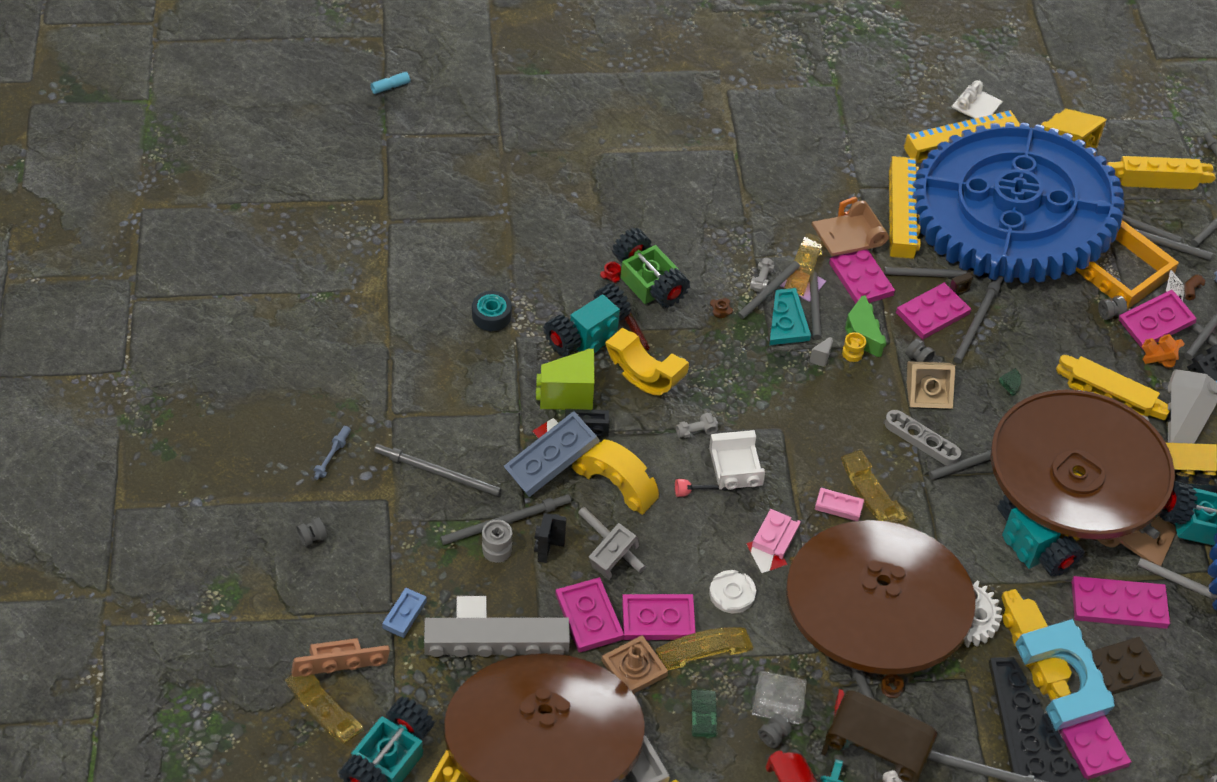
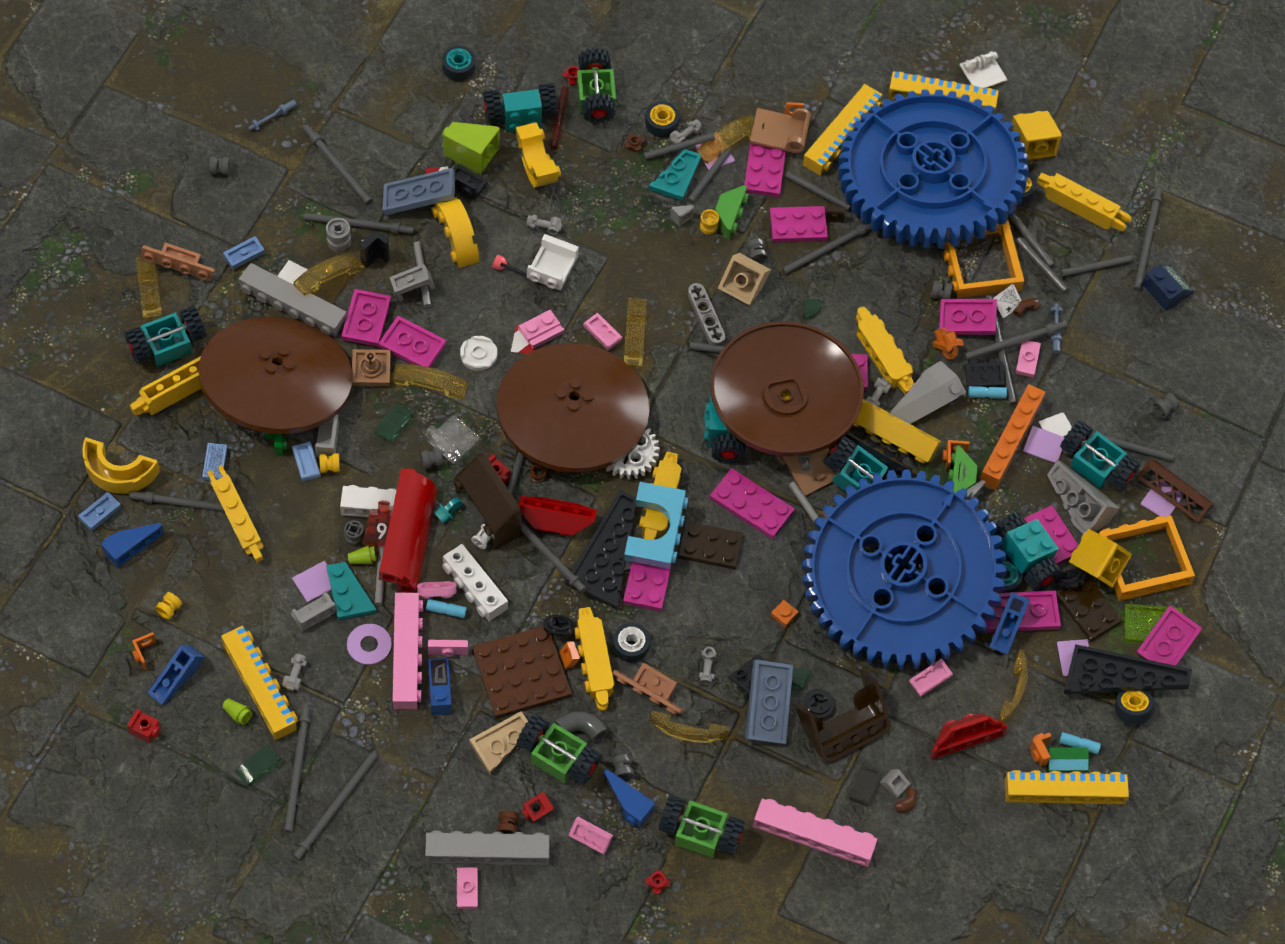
camera: 30 degrees right, 10 degrees up
(514, 587) = (326, 270): none -> clear yellow slope
(731, 272) = (661, 118): none -> wheel
(960, 717) = (556, 515): none -> red wedge

